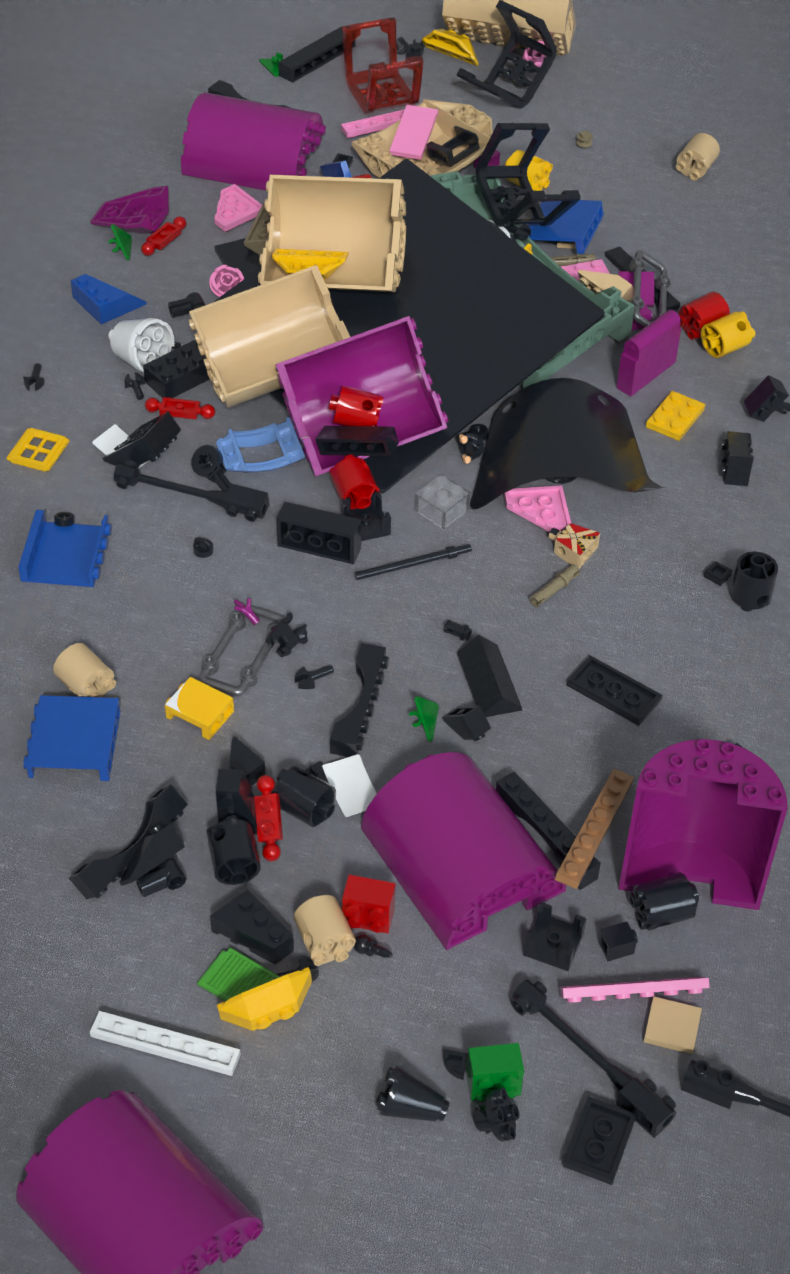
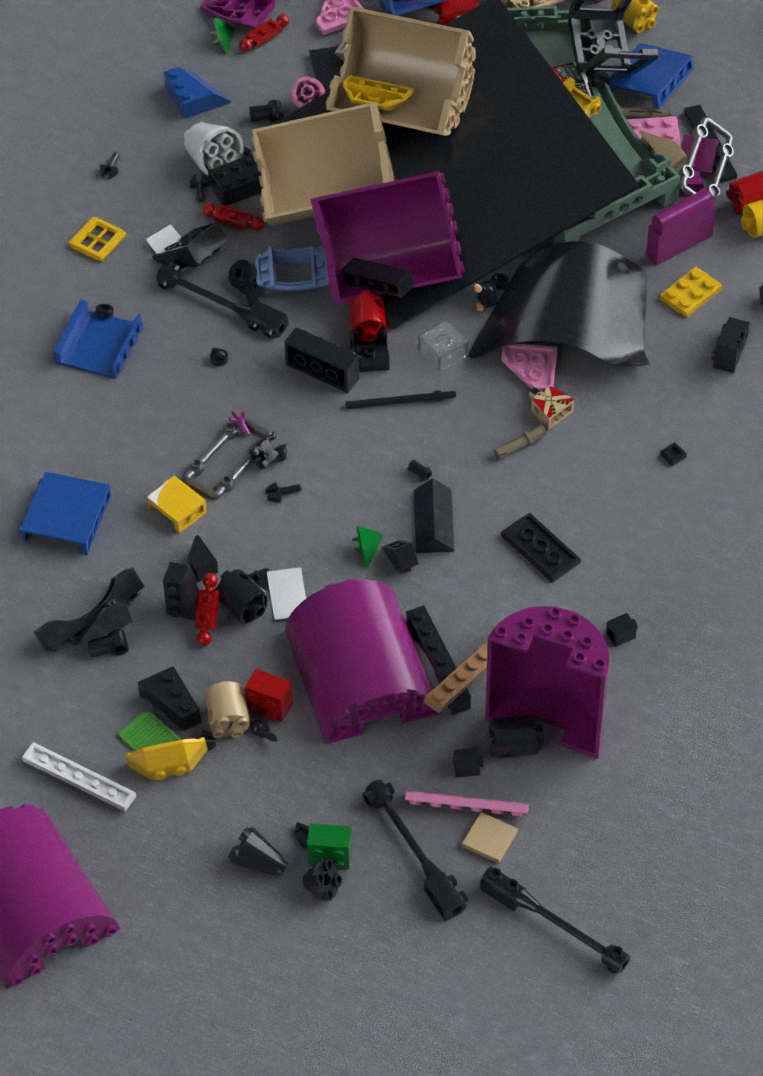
camera: 15 degrees right, 5 degrees up
(83, 672) = (86, 456): tan cylinder -> none
(233, 851) = (171, 632): black cylinder -> none
(349, 731) = (296, 547): black arch -> none
(356, 407) = (379, 241): red cylinder -> none
(553, 939) = (414, 751): black panel -> none
(599, 1140) = (399, 914): black plate -> none
(754, 580) = (697, 467): black cylinder -> none

